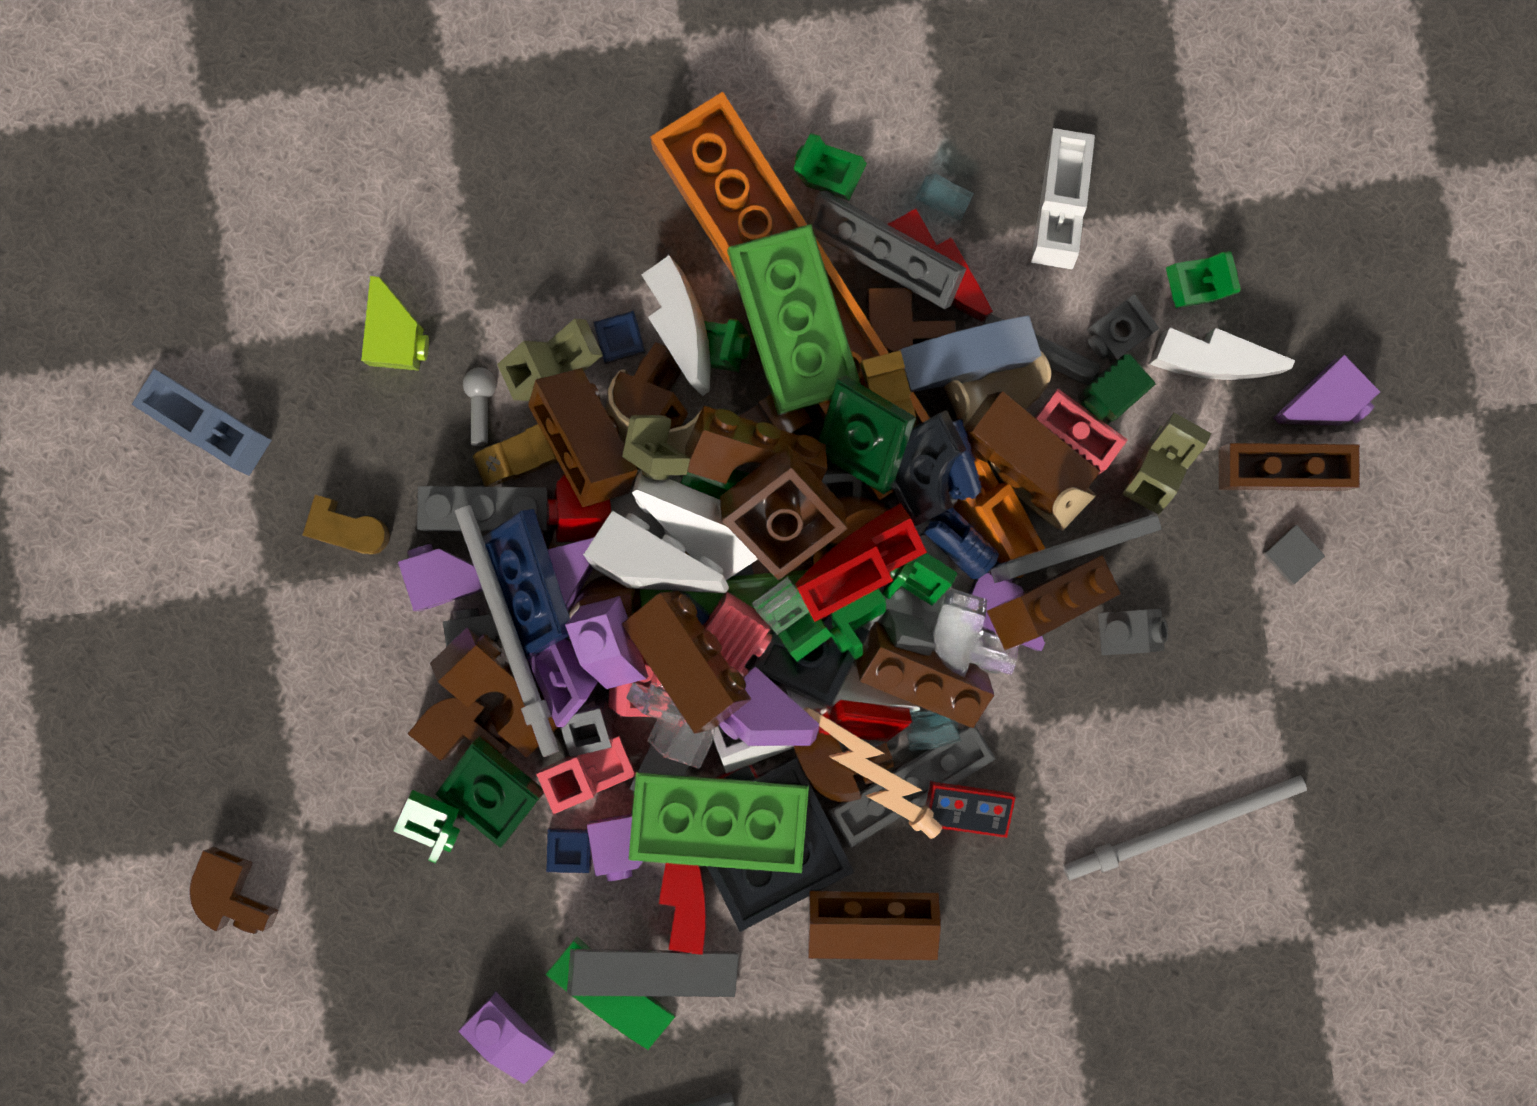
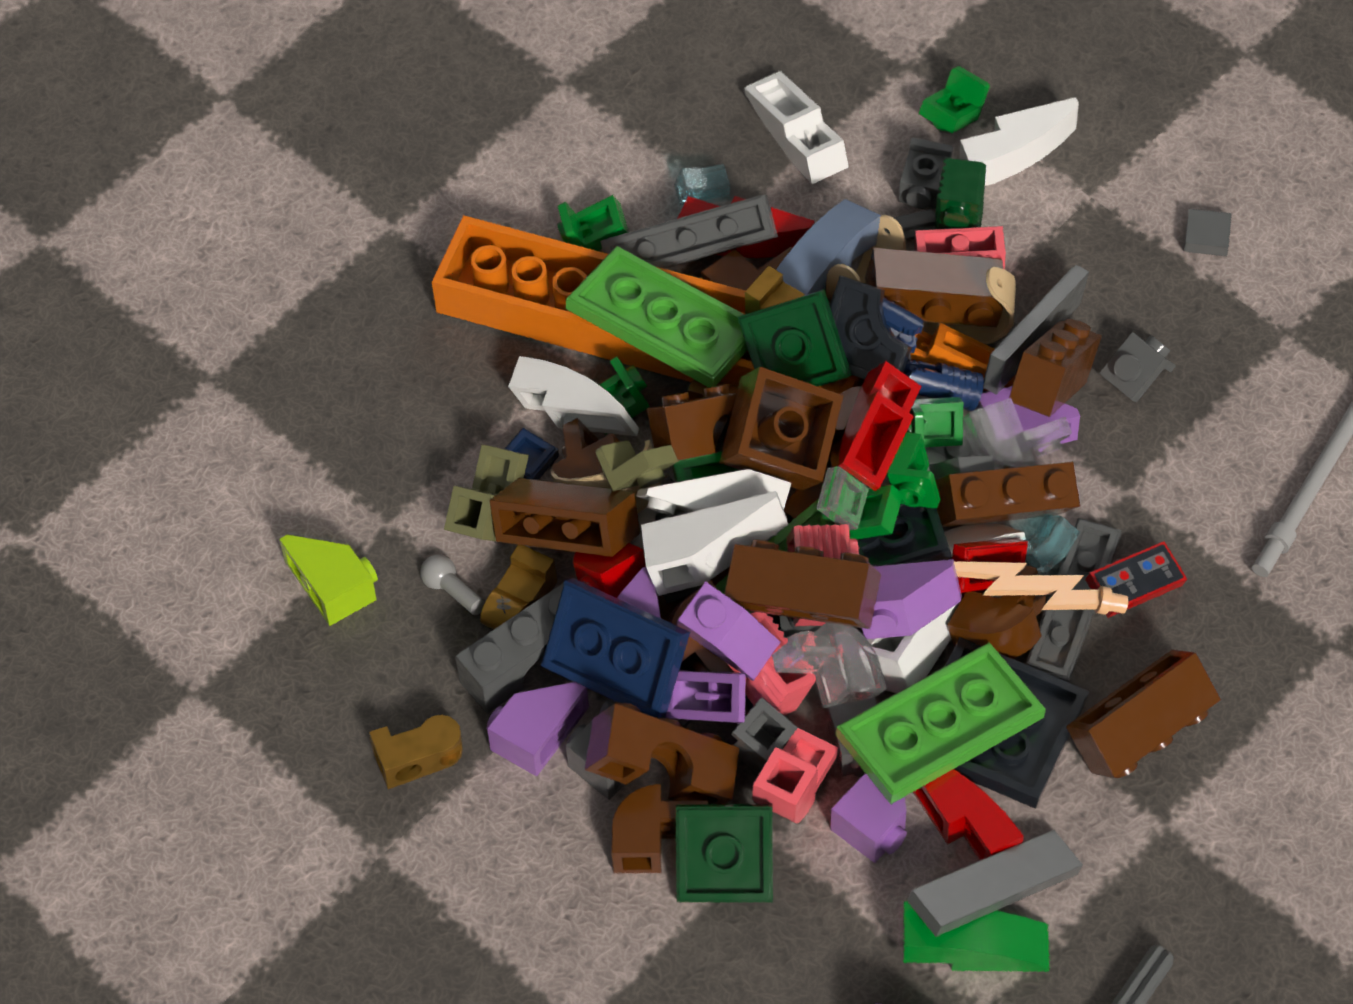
camera: 30 degrees left, 30 degrees down
(201, 422) = (218, 760): sand blue slope -> none
(429, 823) = (692, 922): bracket -> none
(535, 711) = (708, 727): light grey bar -> none
(568, 850) = (833, 862): dark blue tile -> none
(1165, 463) = (1045, 228): olive brick -> none
(1289, 467) = (1142, 169): reddish brown brick -> none
(1332, 397) = (1129, 110): medium lavender slope -> none

